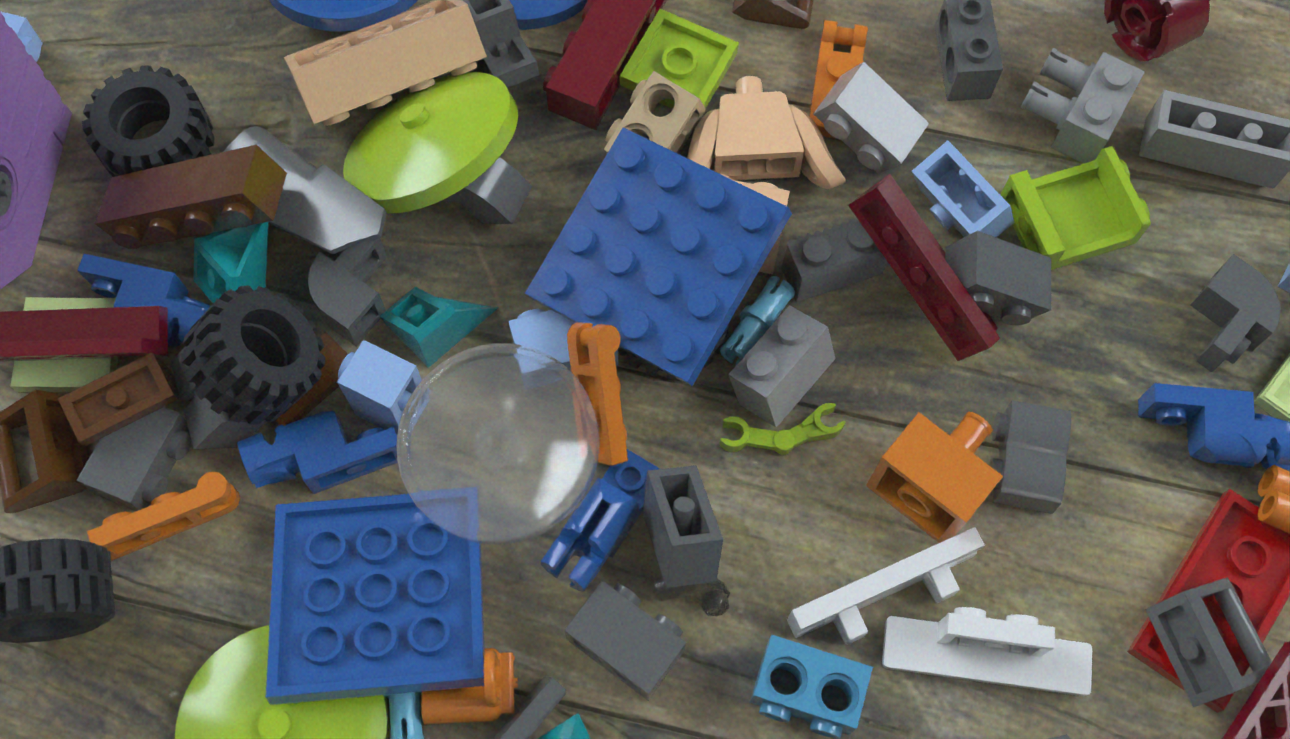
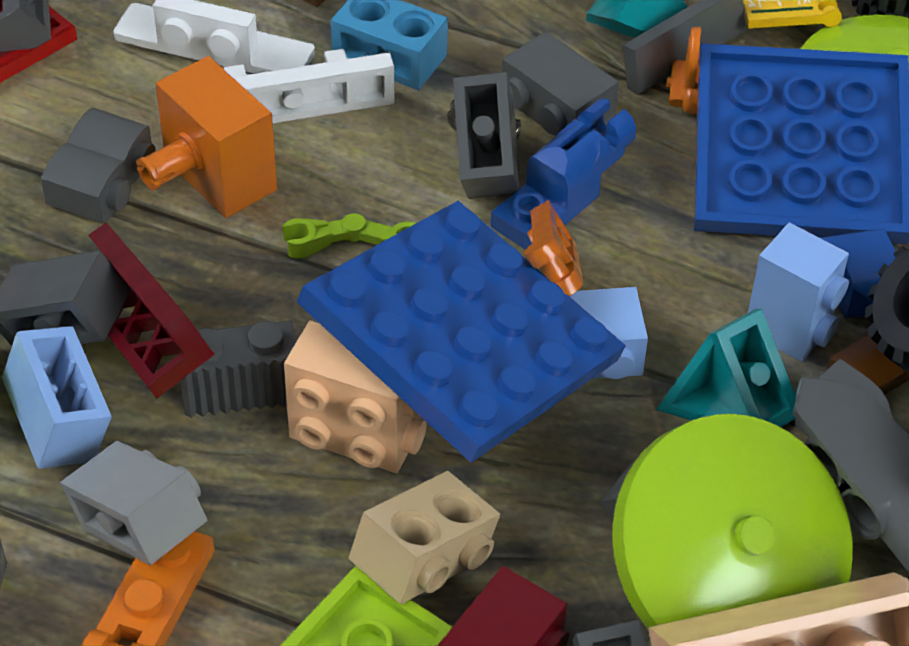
camera: 170 degrees left, 20 degrees down
(498, 443) = (668, 221): clear dish -> none
(762, 138) = (290, 519): light nougat torso -> none
(782, 366) = (326, 252): light grey brick -> none

